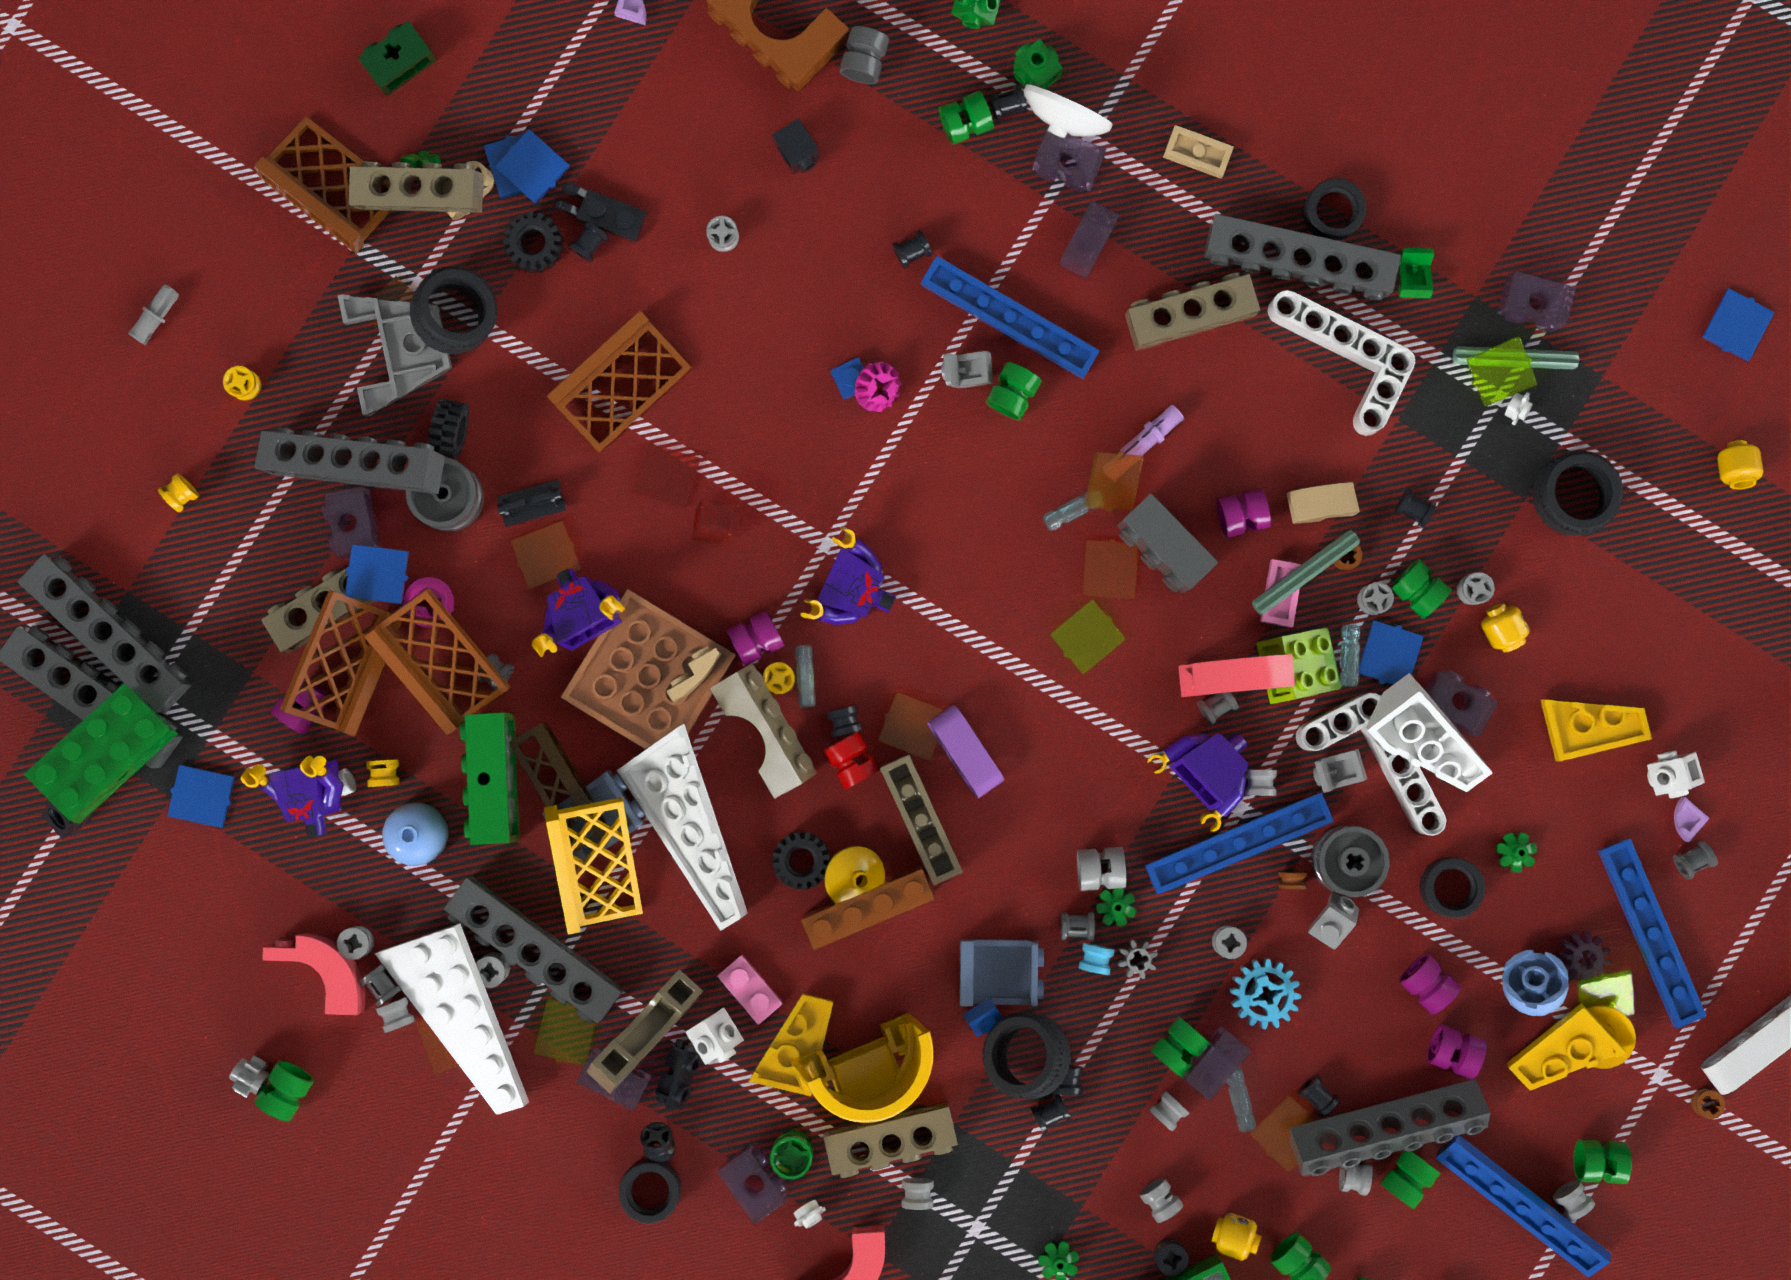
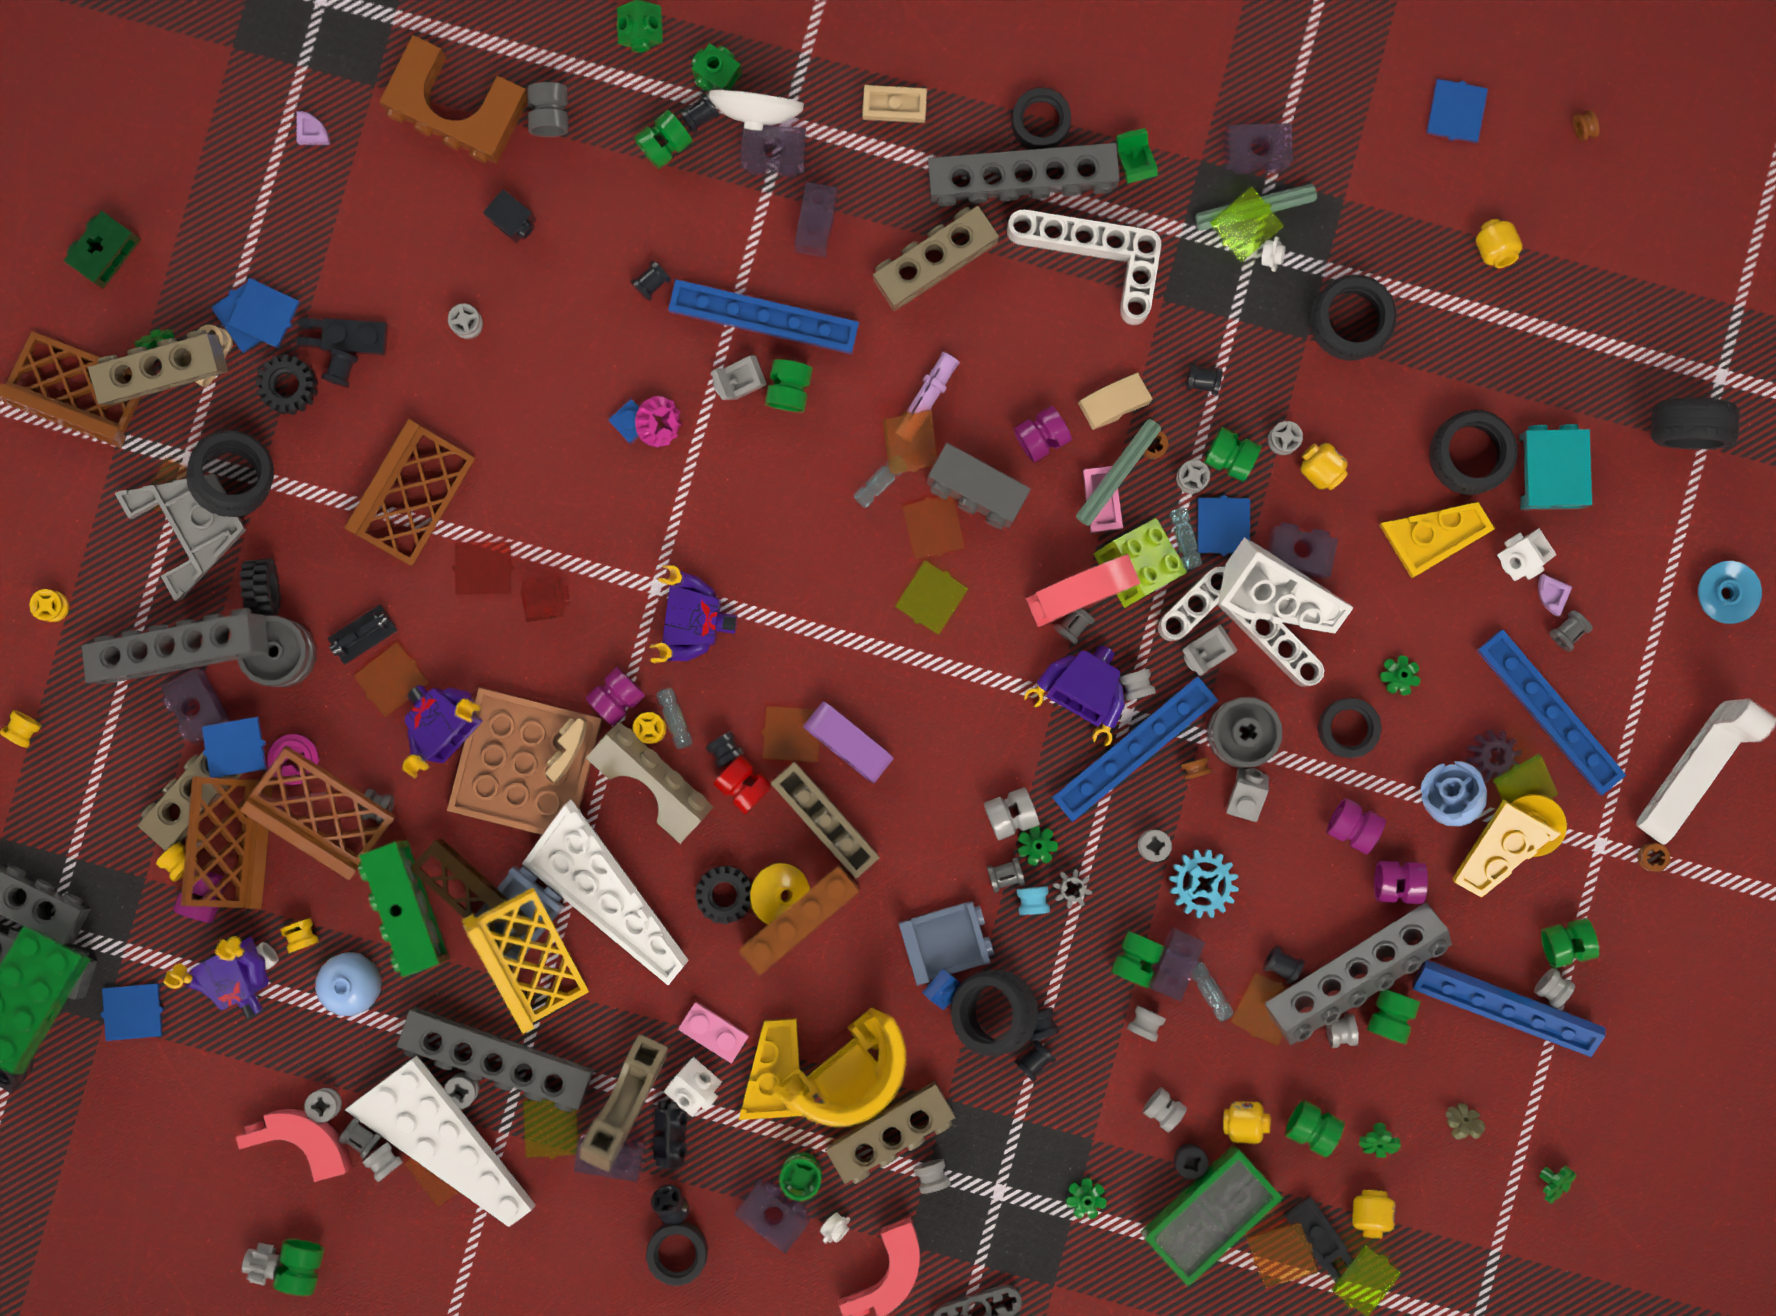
camera: 15 degrees left, 0 degrees up
(285, 665) = (173, 861): none -> yellow wheel
(1685, 653) = (1499, 433): none -> black tyre
(1730, 698) = (1556, 468): none -> teal panel

